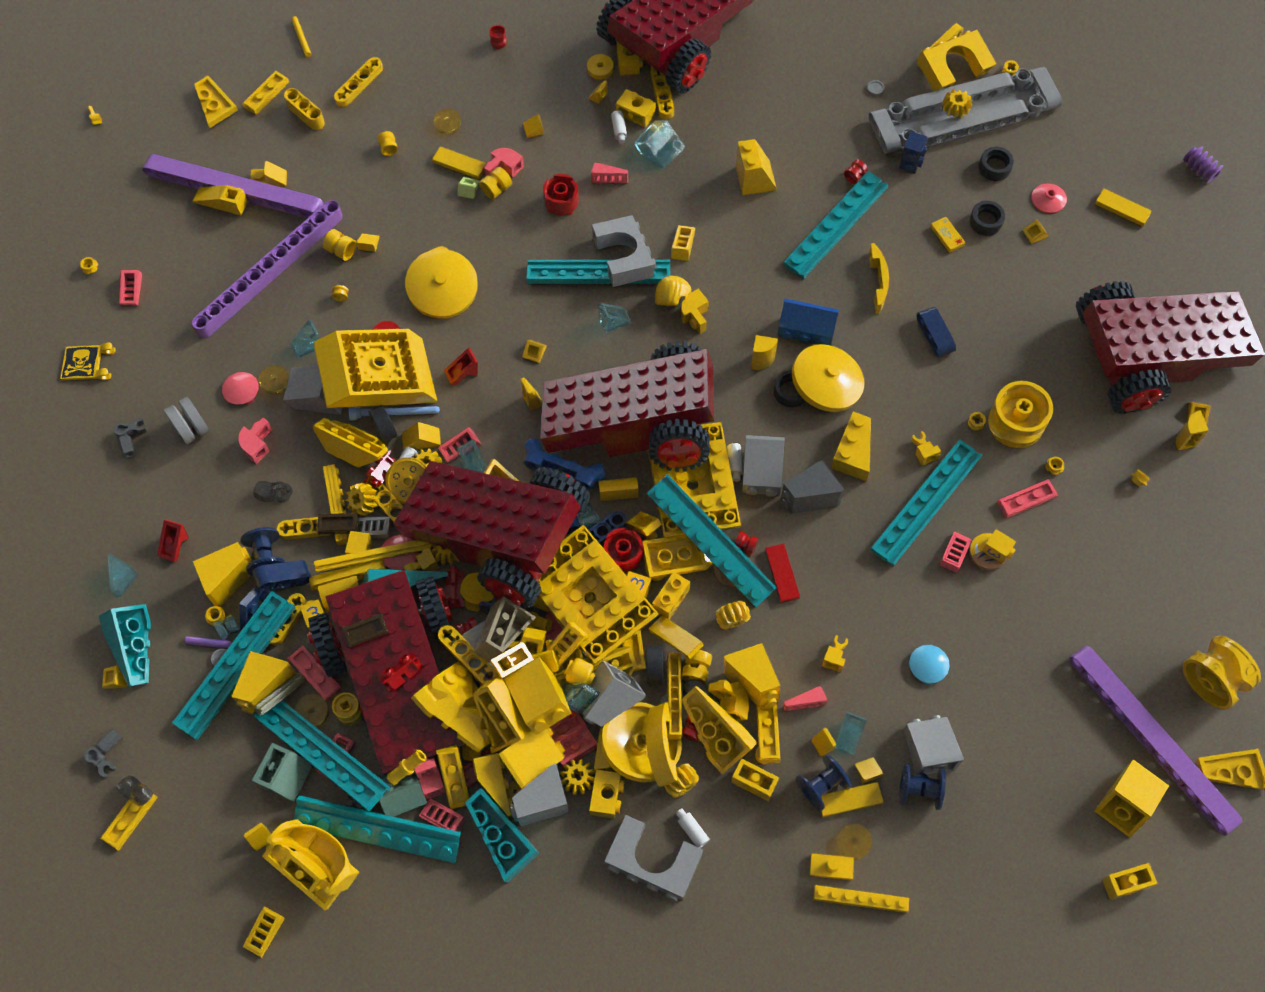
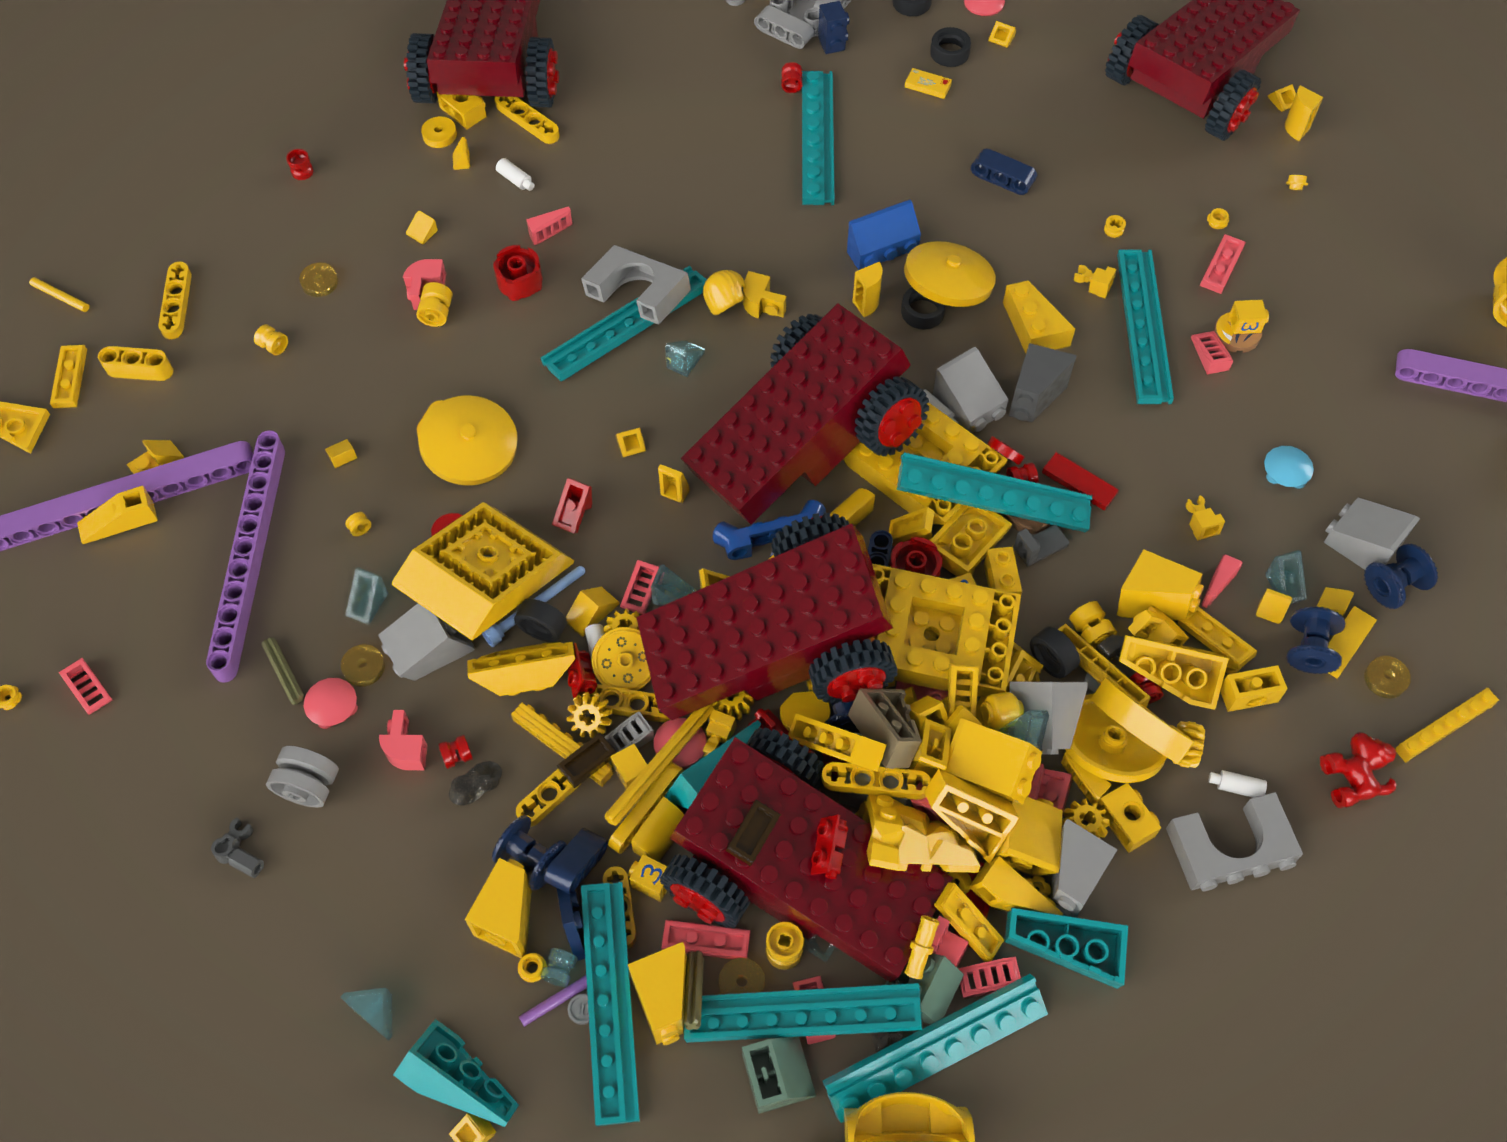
camera: 40 degrees left, 5 degrees down
(84, 362) = (101, 807): flag -> none
(170, 540) = (404, 923): red slope -> none
(231, 352) = (283, 671): none -> olive axle
(278, 466) = (449, 754): none -> red wheel
(339, 244) = (316, 473): yellow wheel -> none
(459, 162) = (371, 311): yellow tile -> none
(463, 617) = (837, 742): none -> yellow brick
(468, 187) = (404, 330): yellowish green slope -> none
(636, 108) = (517, 146): yellow brick -> none
(659, 143) = (573, 165): clear light blue slope -> none
(676, 637) = (1052, 610): yellow tile -> none
(682, 243) = (687, 245): yellow slope -> none
(715, 594) = (1039, 546): none -> dark grey bracket
(732, 615) = (1079, 550): yellow gear -> none
(749, 519) = (1006, 450): none -> red piece
(753, 168) = (693, 130): yellow slope -> none
(769, 878) = (1368, 755): none -> red animal
(831, 866) = (1392, 716): yellow tile -> none
(878, 261) = (909, 153): yellow slope -> none
(1020, 414) = (1152, 191): yellow piece -> none

